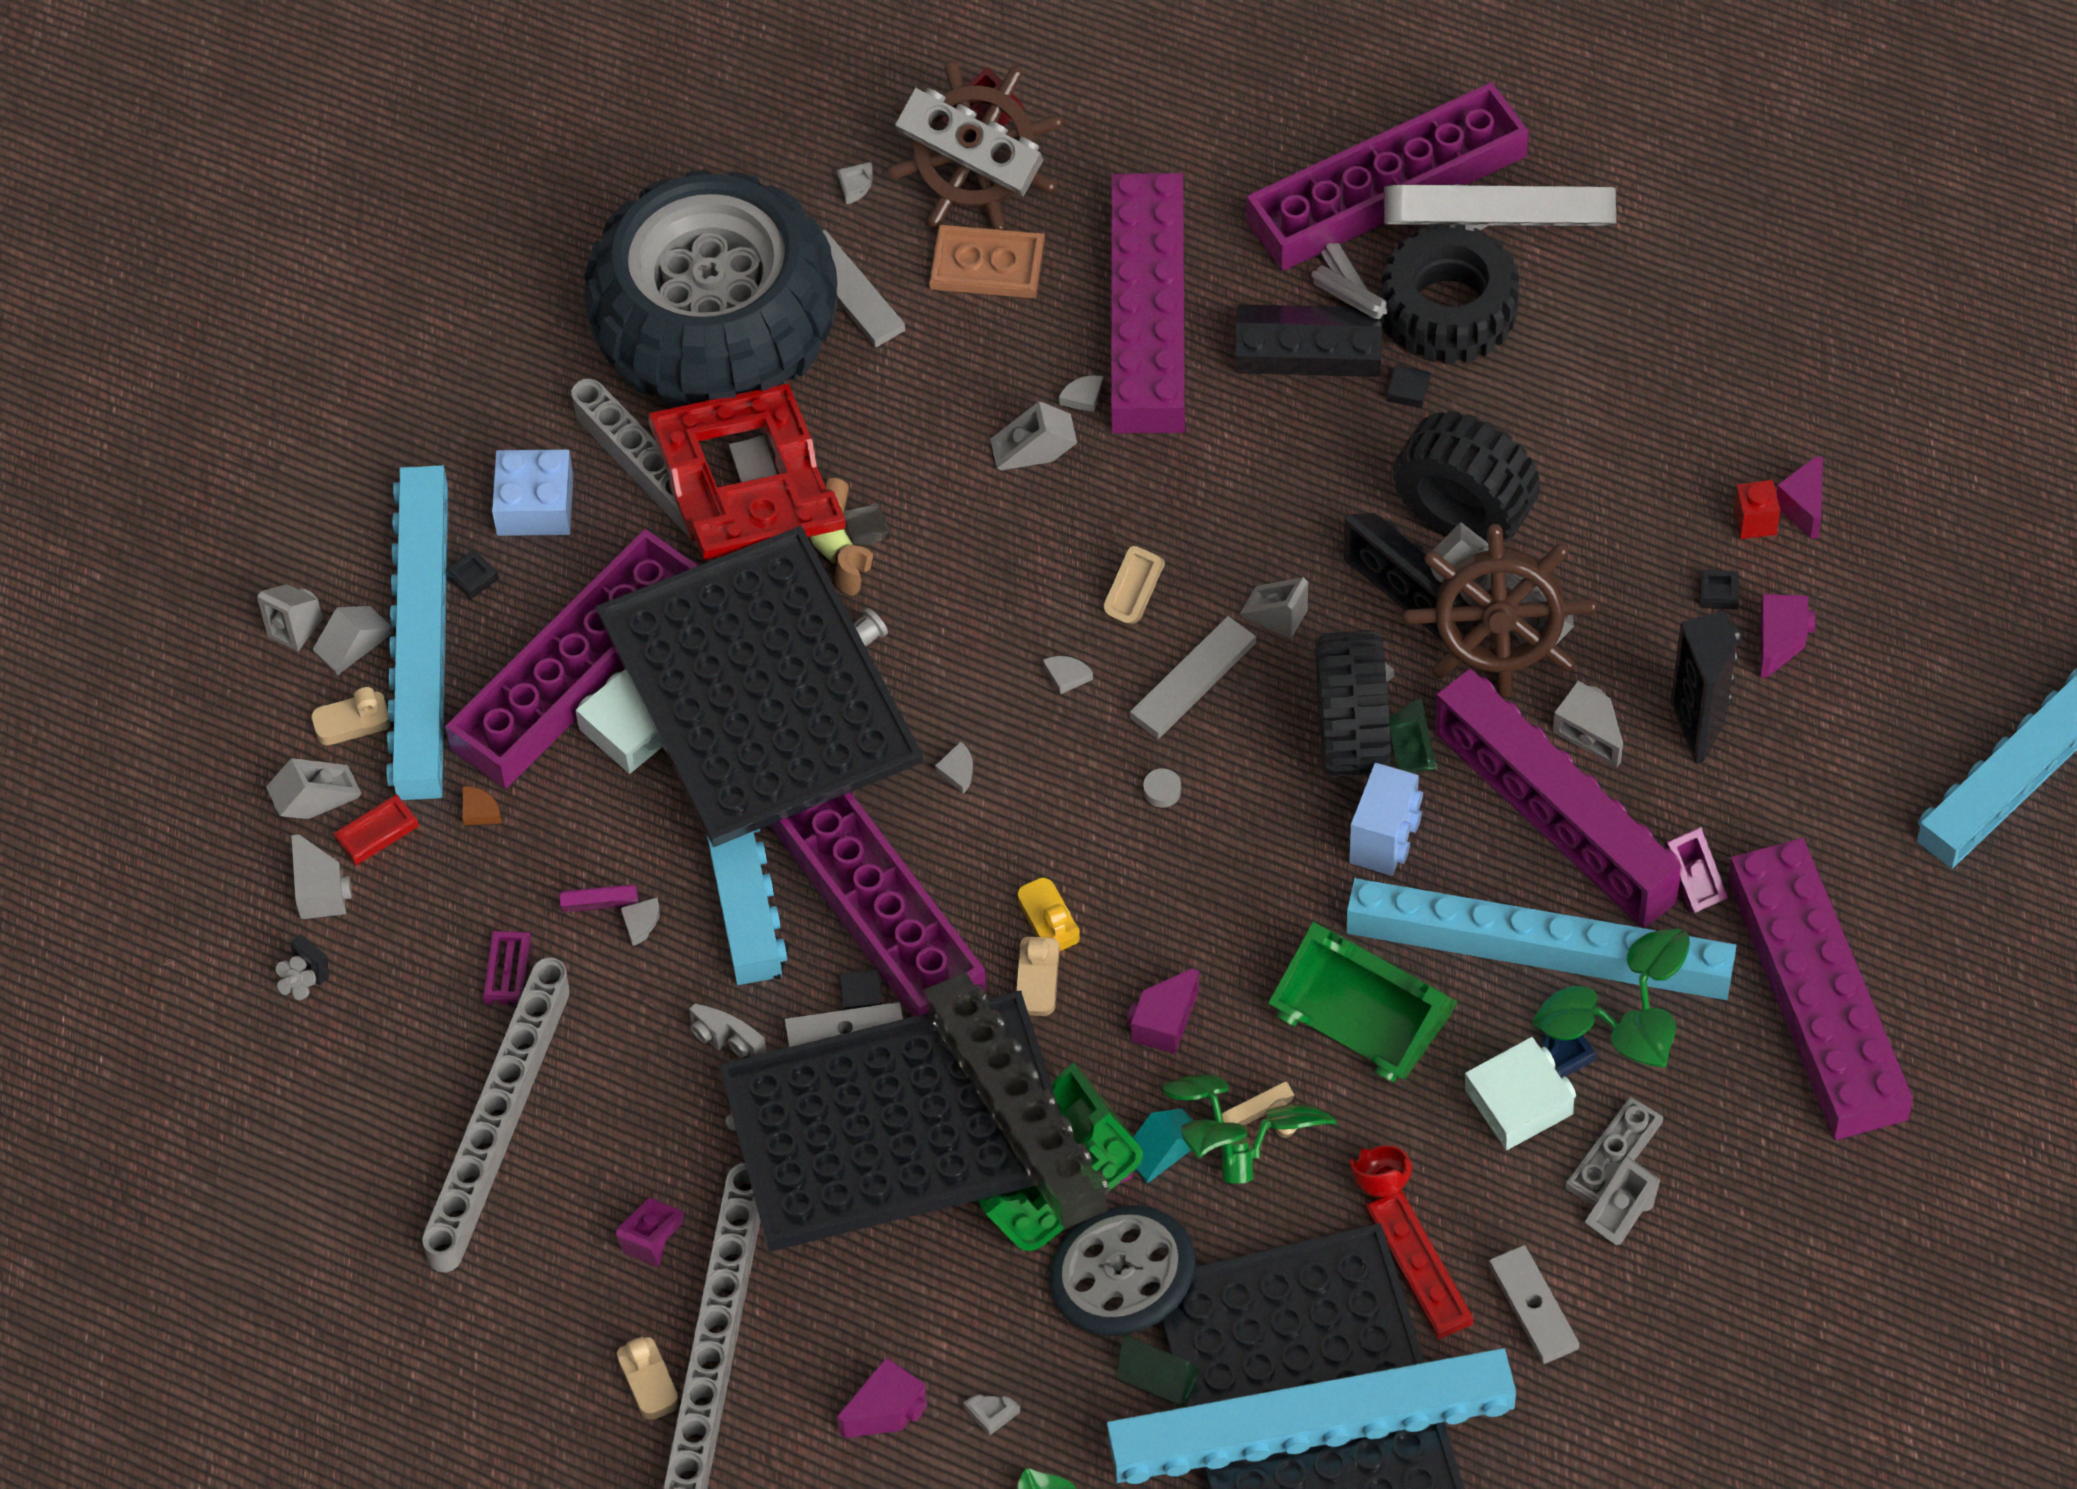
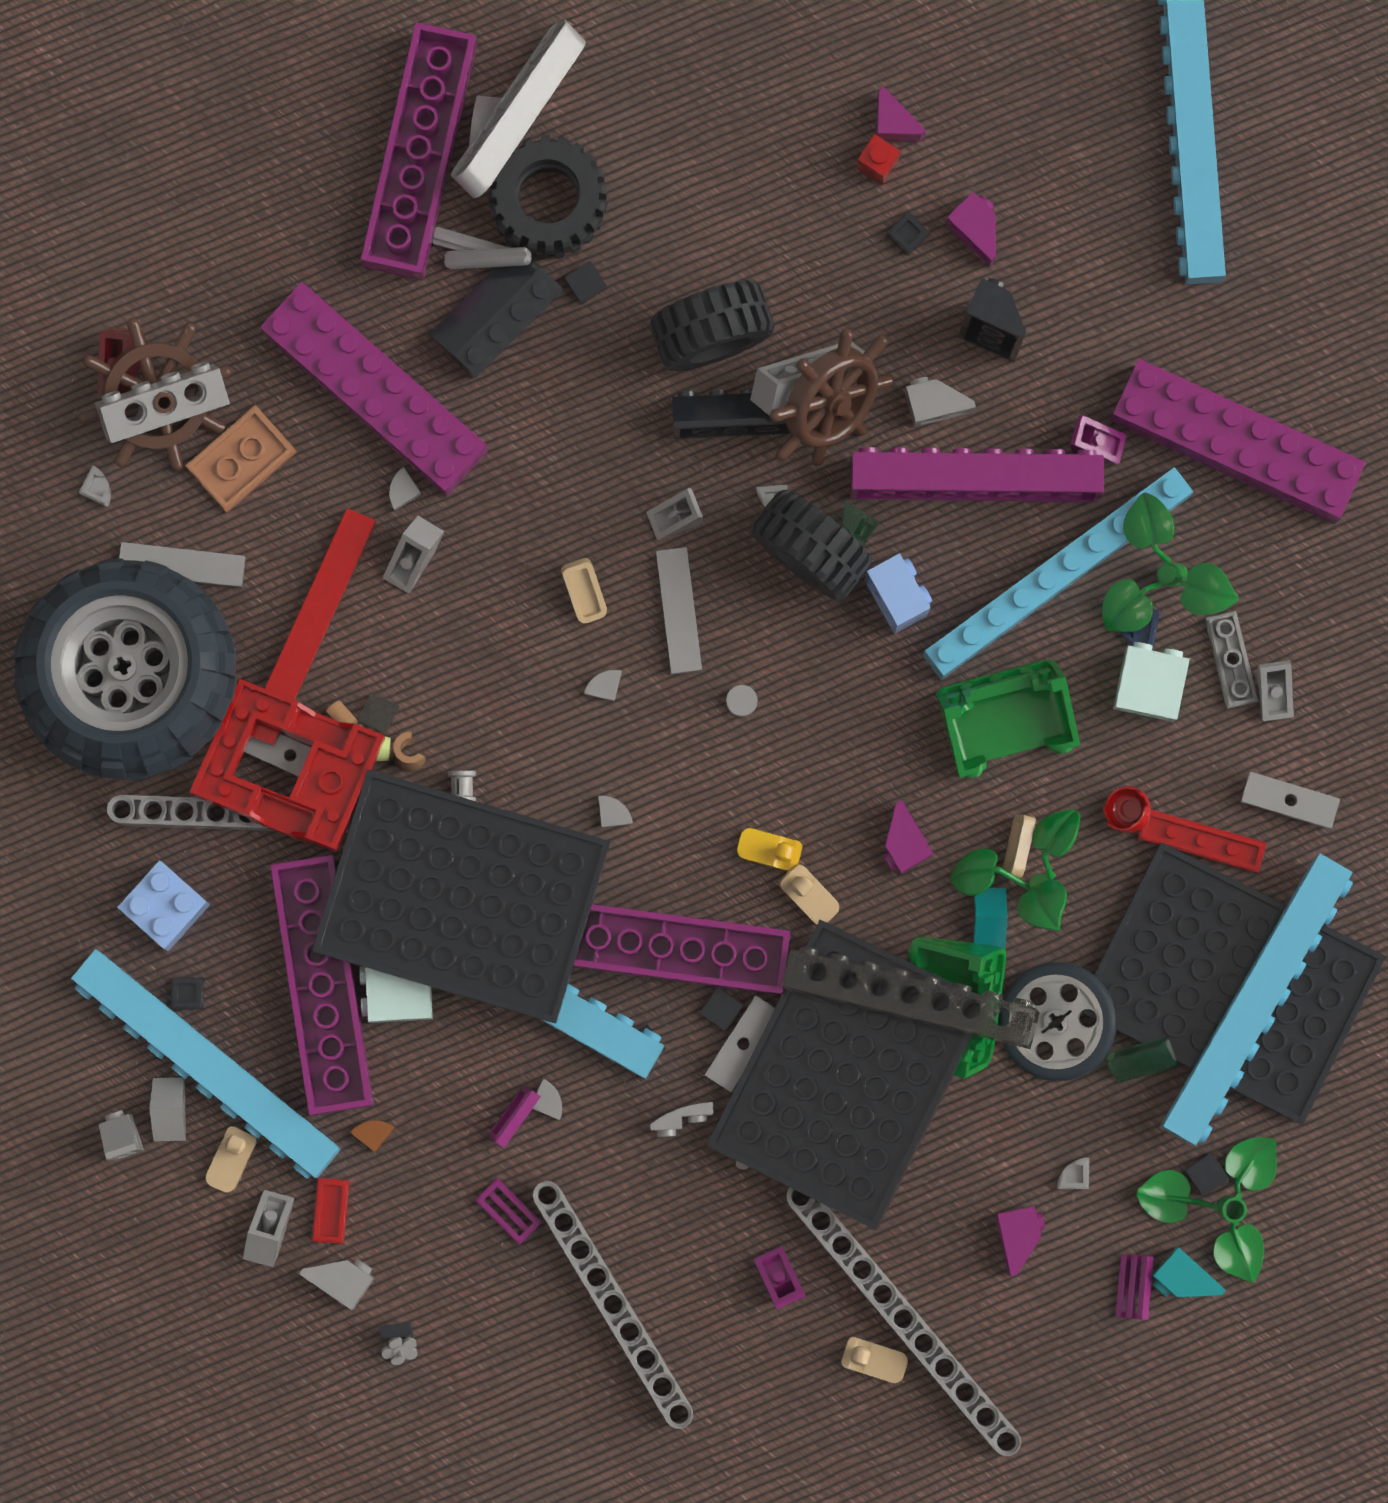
camera: 55 degrees left, 25 degrees up
(906, 410) = (317, 612): none -> red tile

